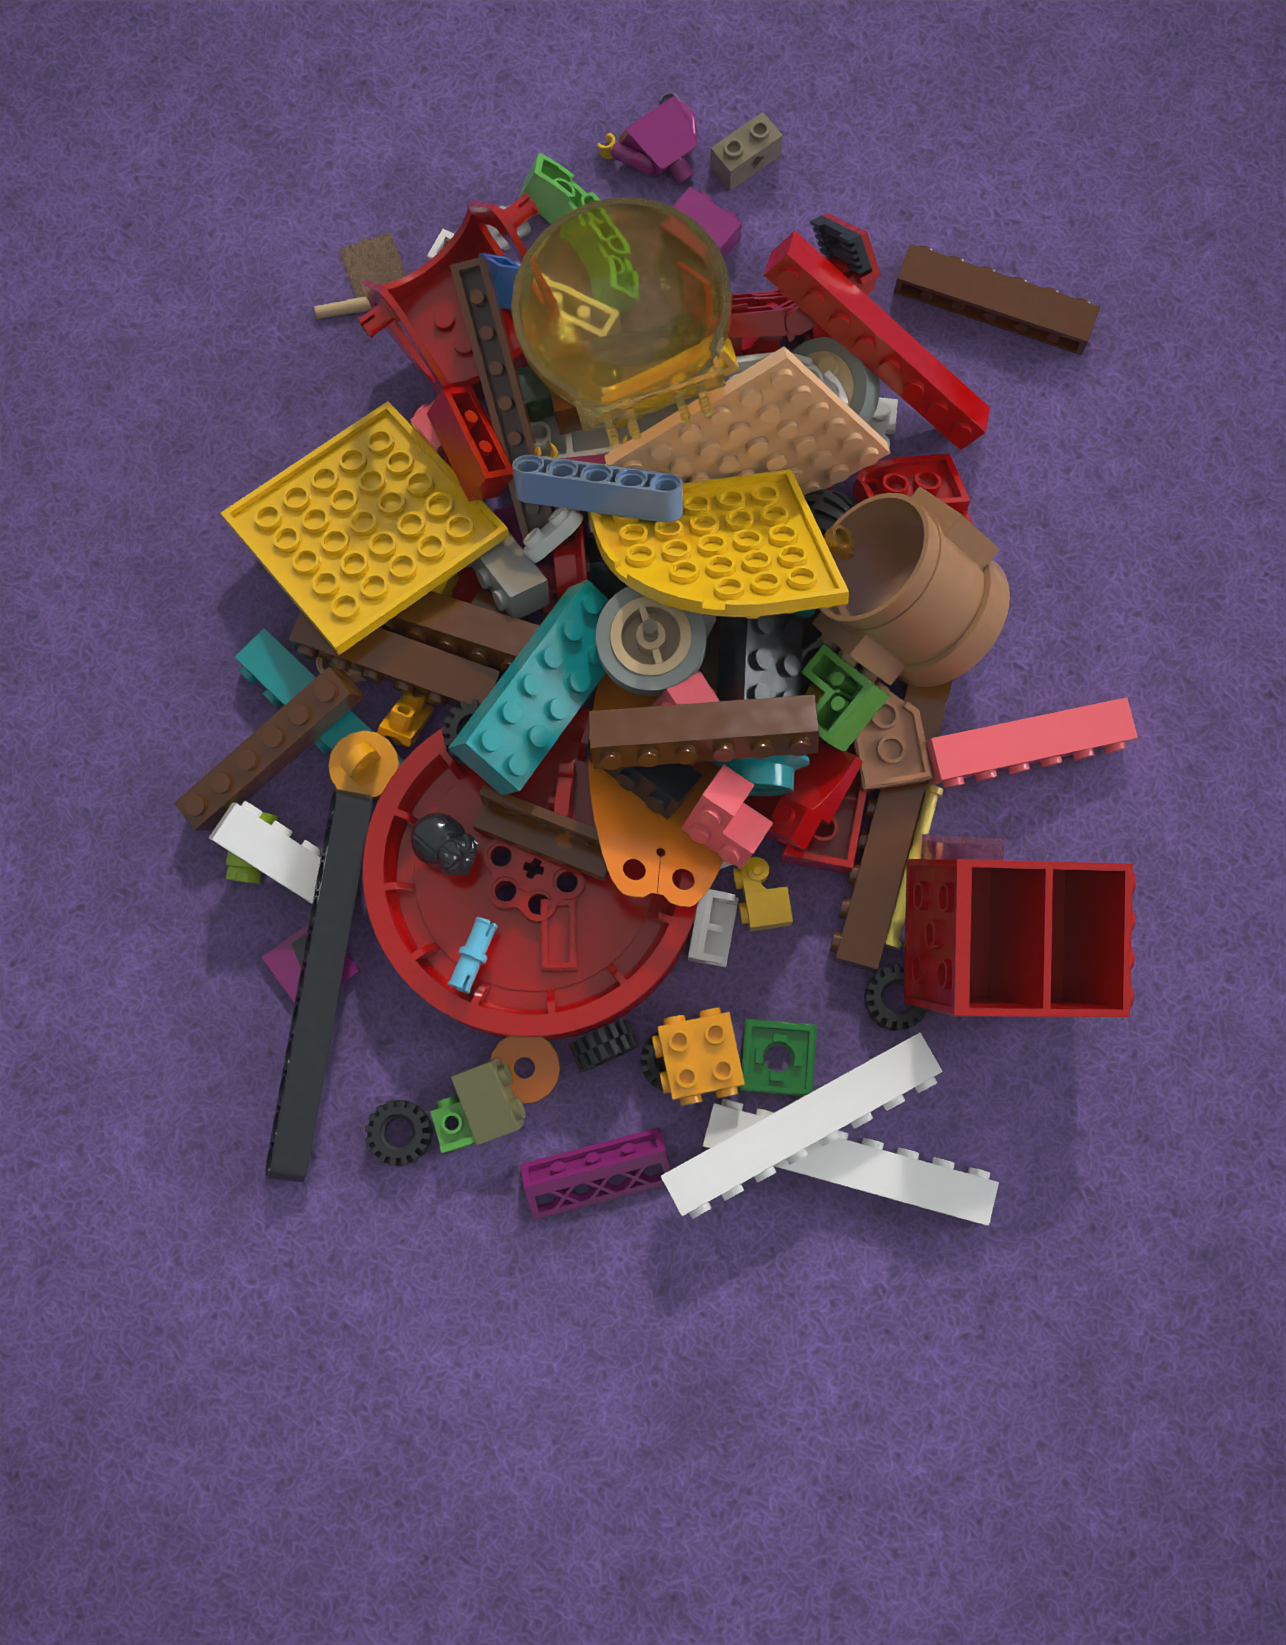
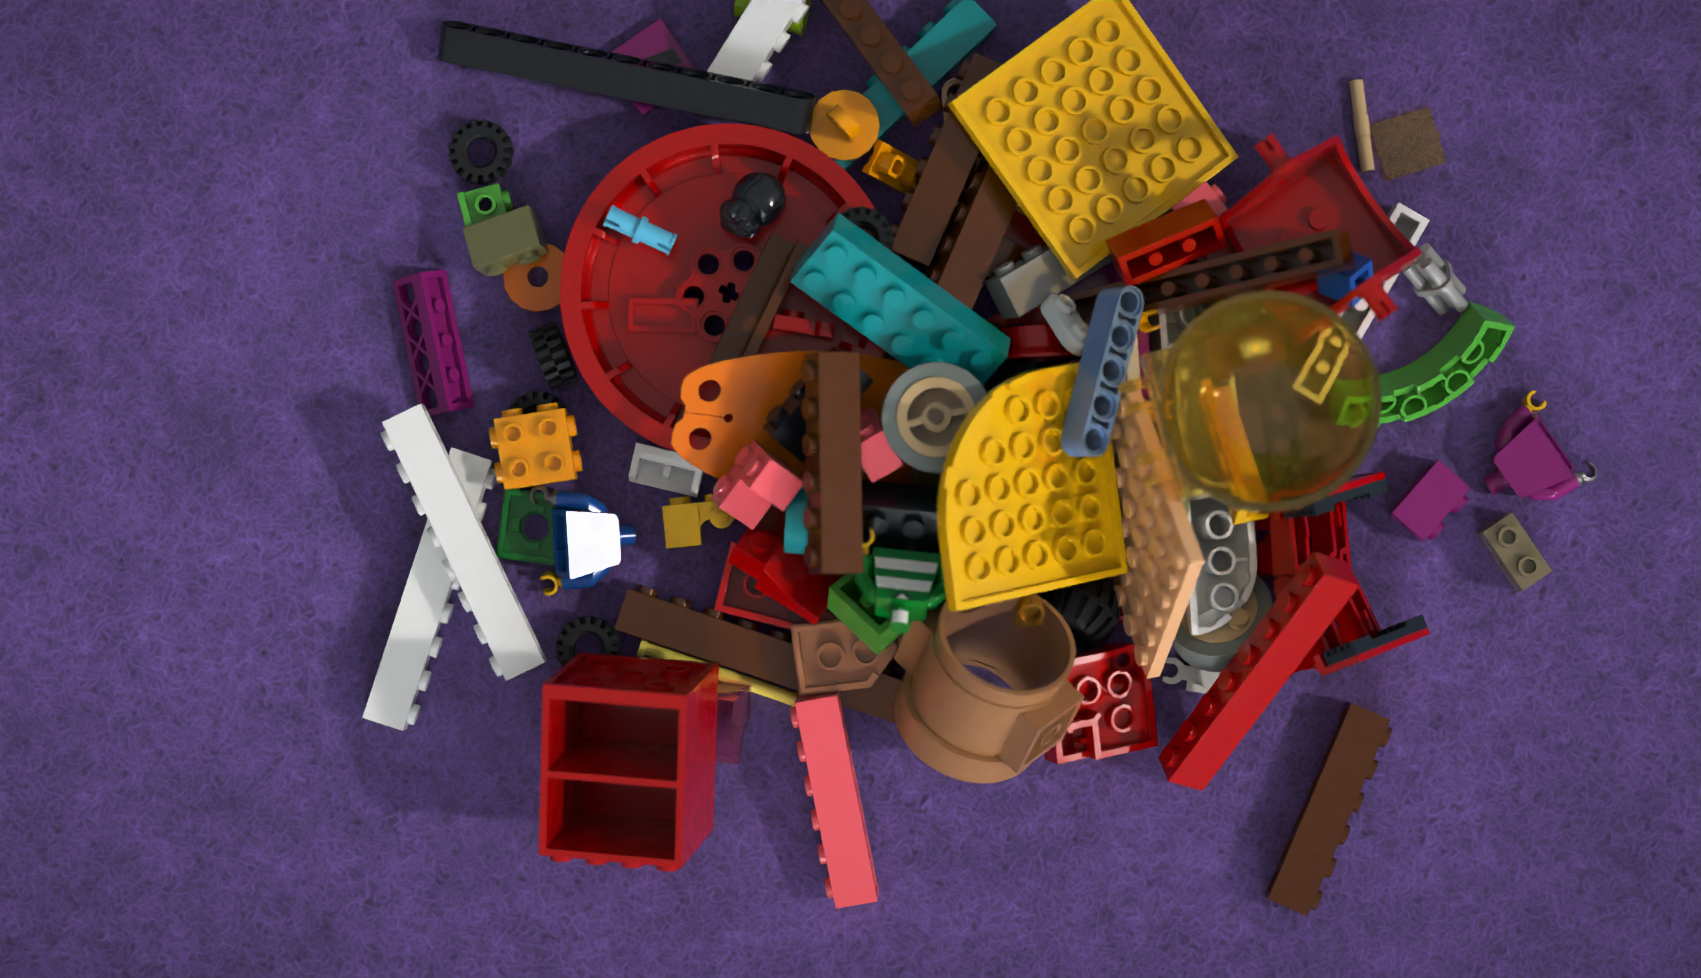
camera: 85 degrees right, 10 degrees up
(789, 1005) = (583, 538): none -> torso
(819, 660) = (901, 584): none -> green torso

